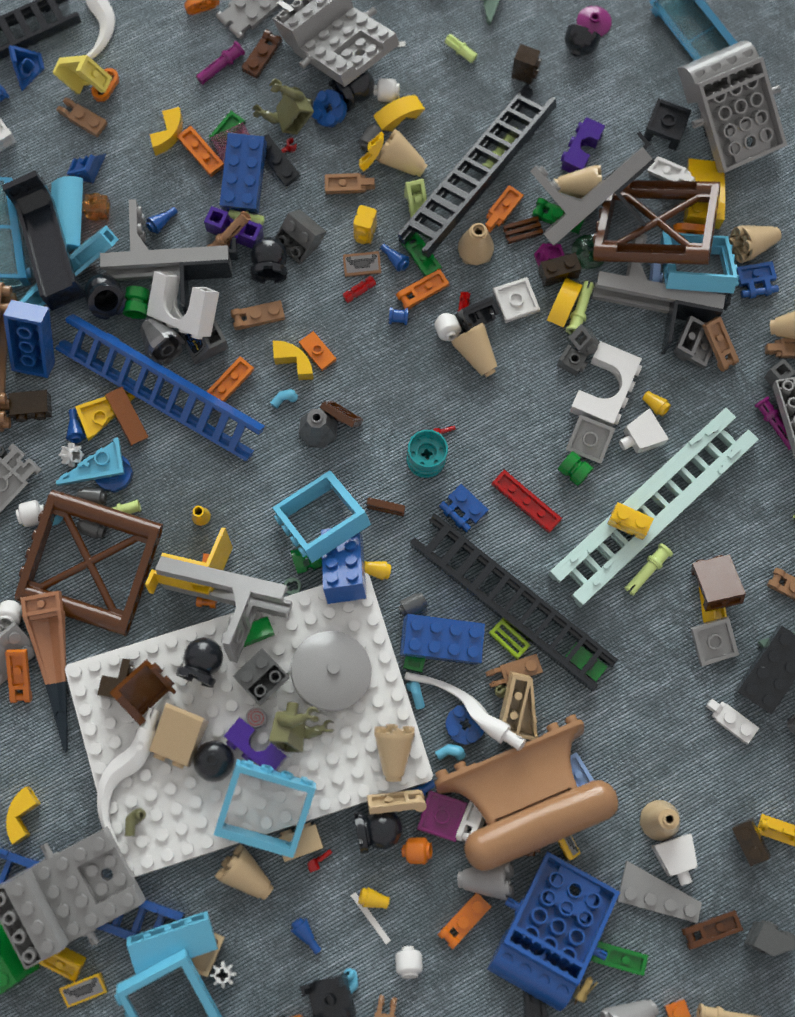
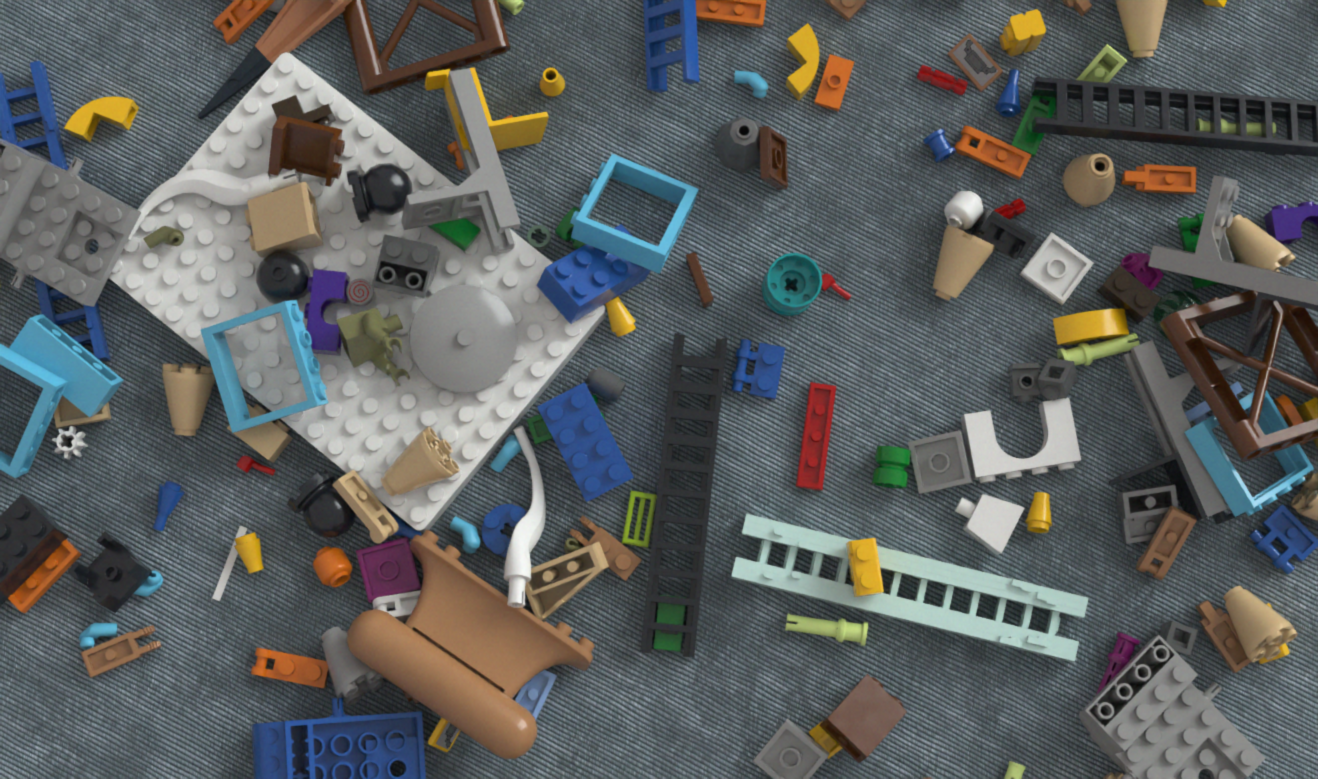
camera: 60 degrees right, 5 degrees up
(408, 962) = (206, 634): white head -> none
(537, 225) = (1157, 213): reddish brown tile -> none

